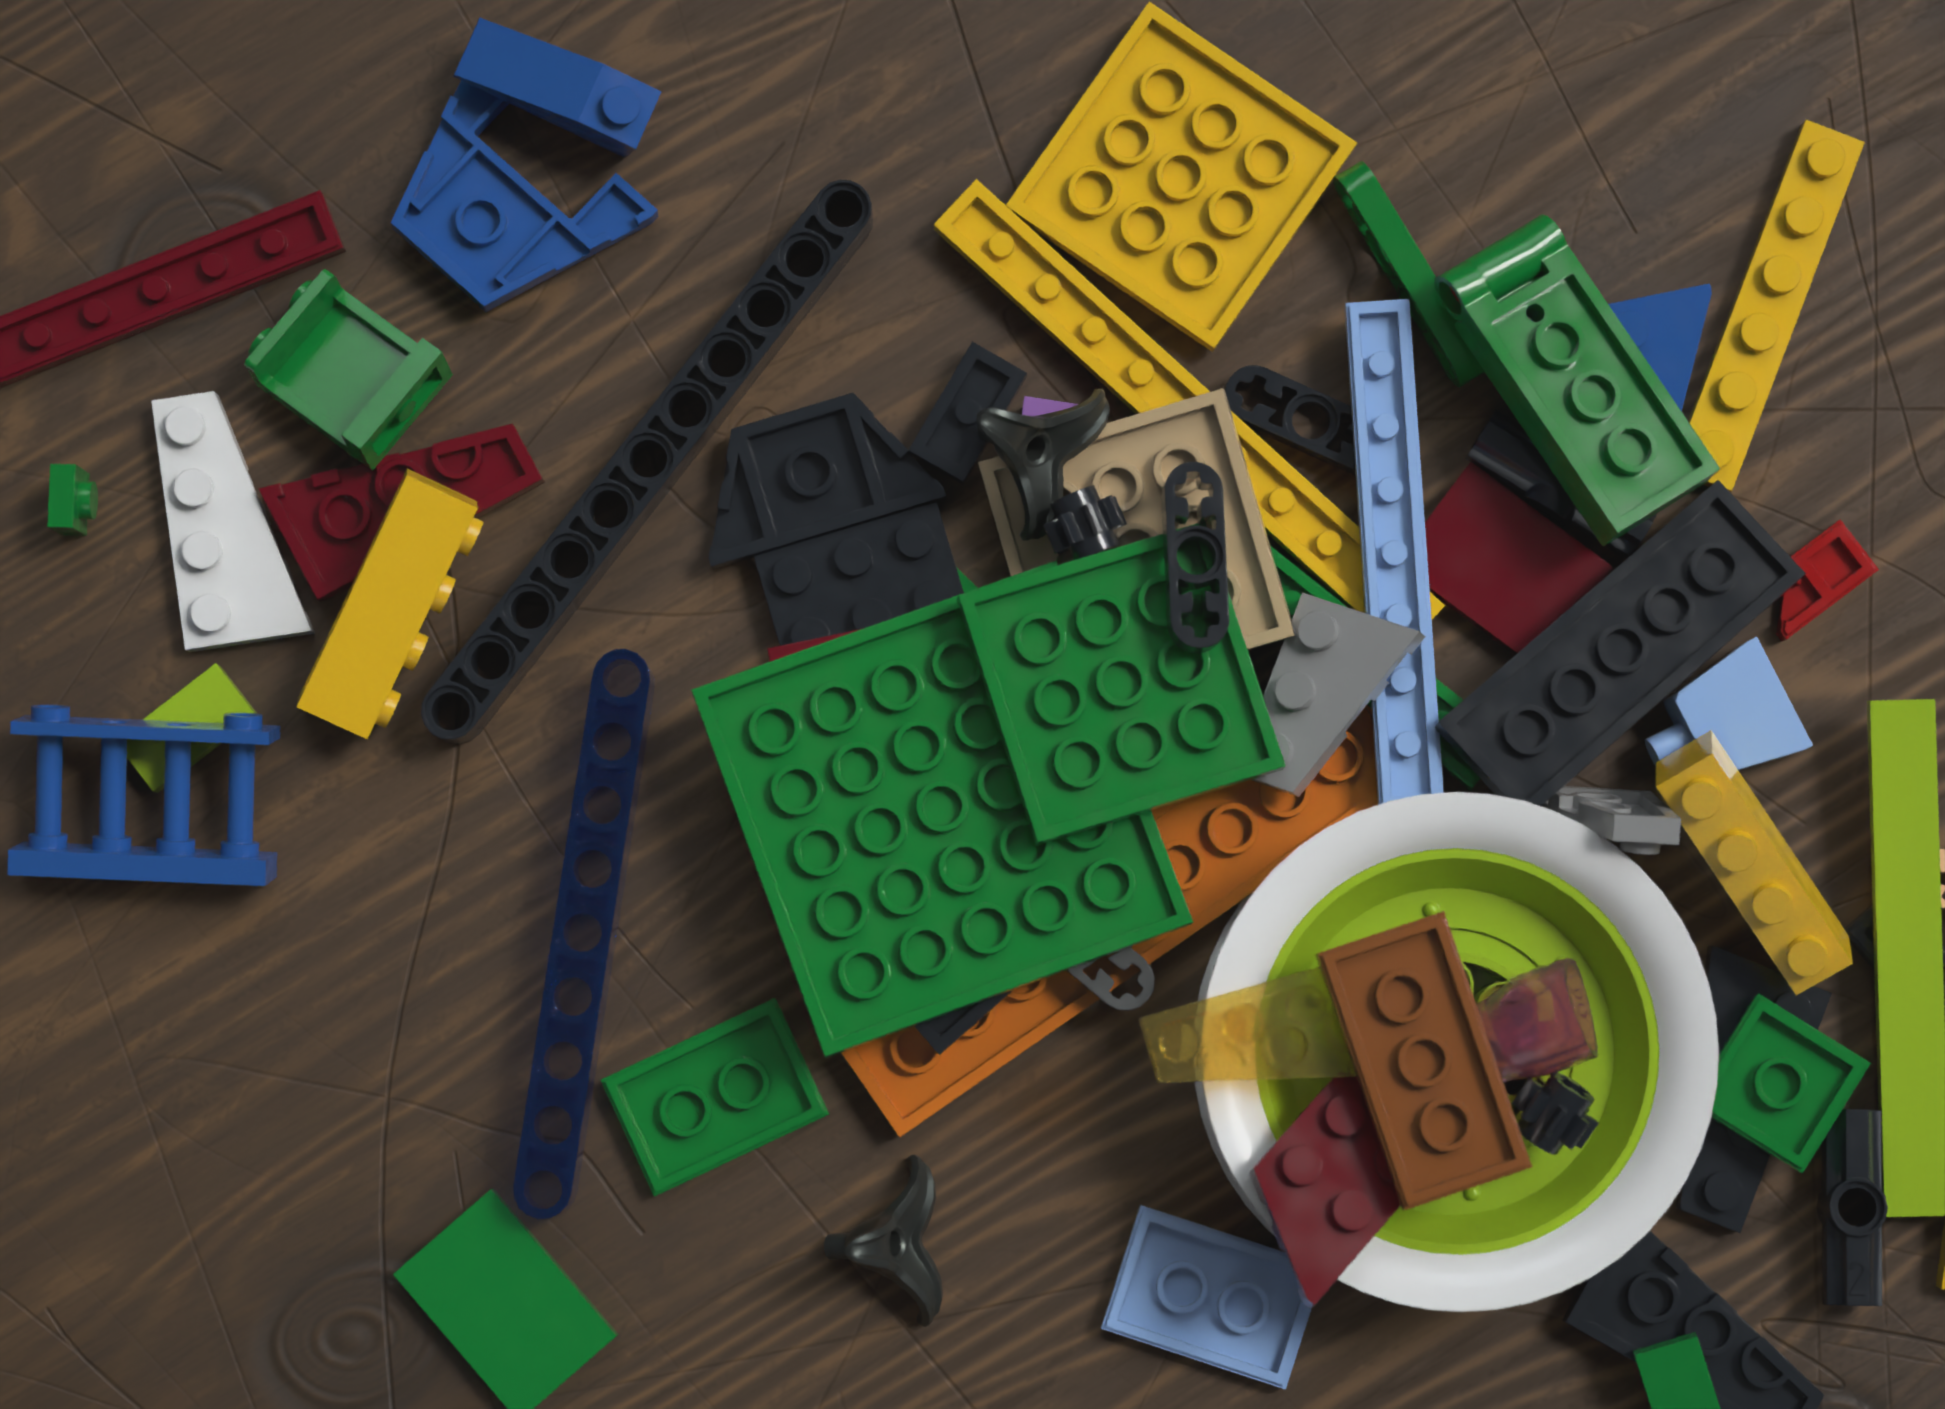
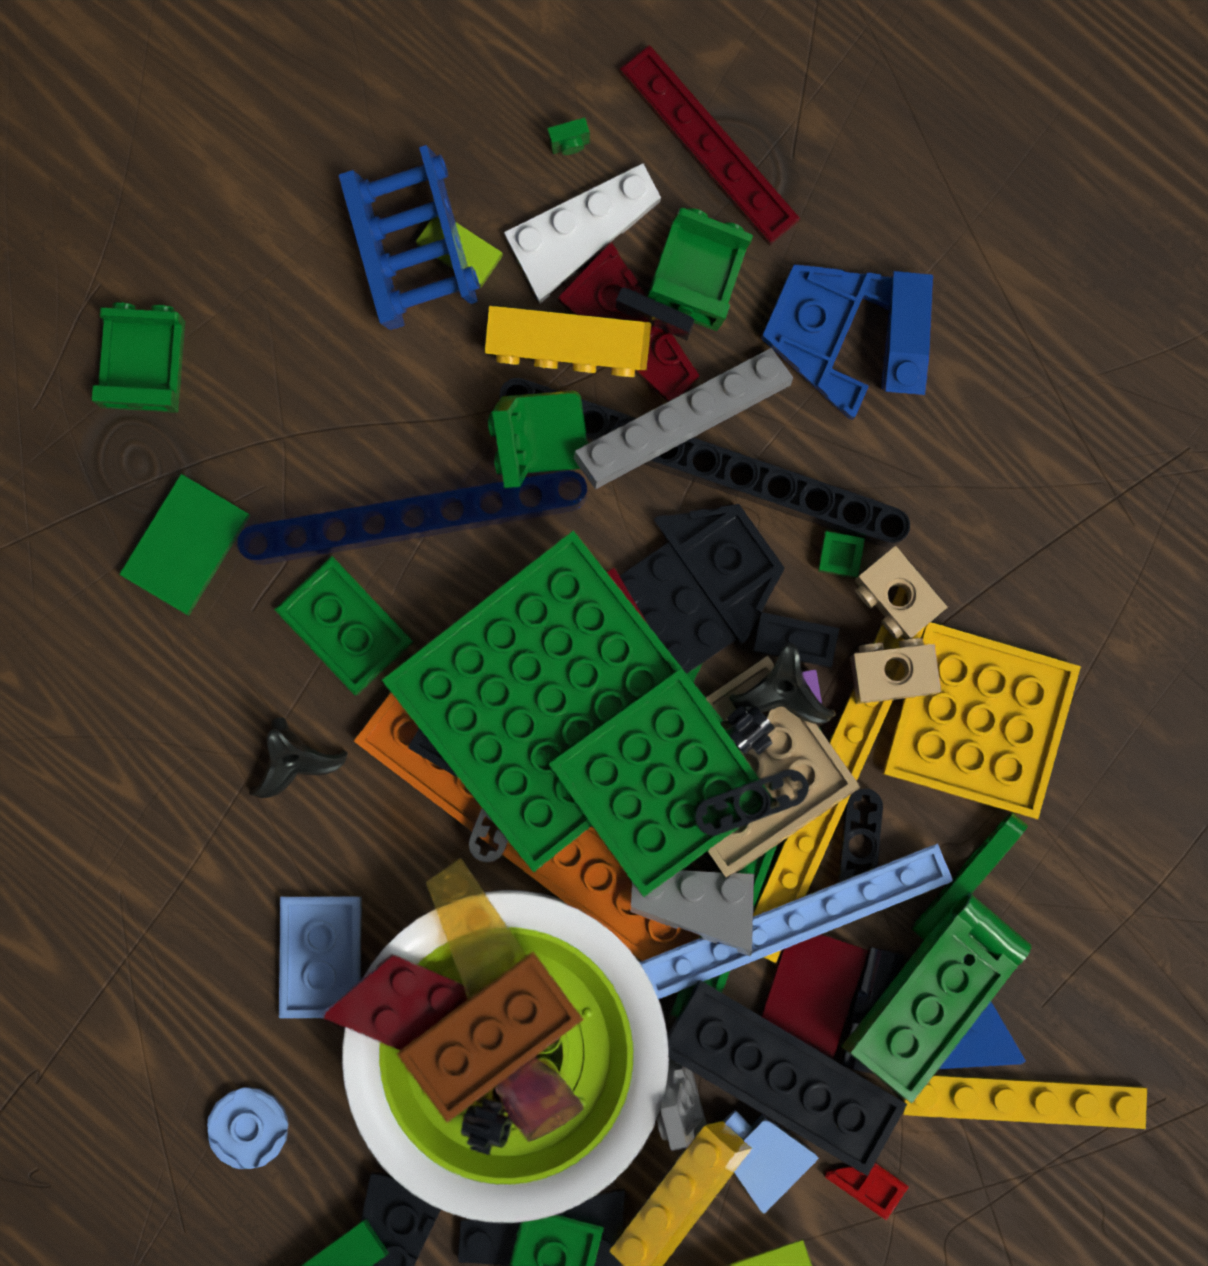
camera: 70 degrees right, 0 degrees up
(188, 1281) = (140, 358): none -> green panel
(394, 456) = (655, 313): none -> black tile
(524, 695) = (537, 434): none -> green bracket
(572, 469) = (682, 418): none -> light grey plate
(860, 301) = (841, 555): none -> green plate
(979, 204) = (922, 601): none -> tan brick
(1072, 239) = (919, 678): none -> tan brick

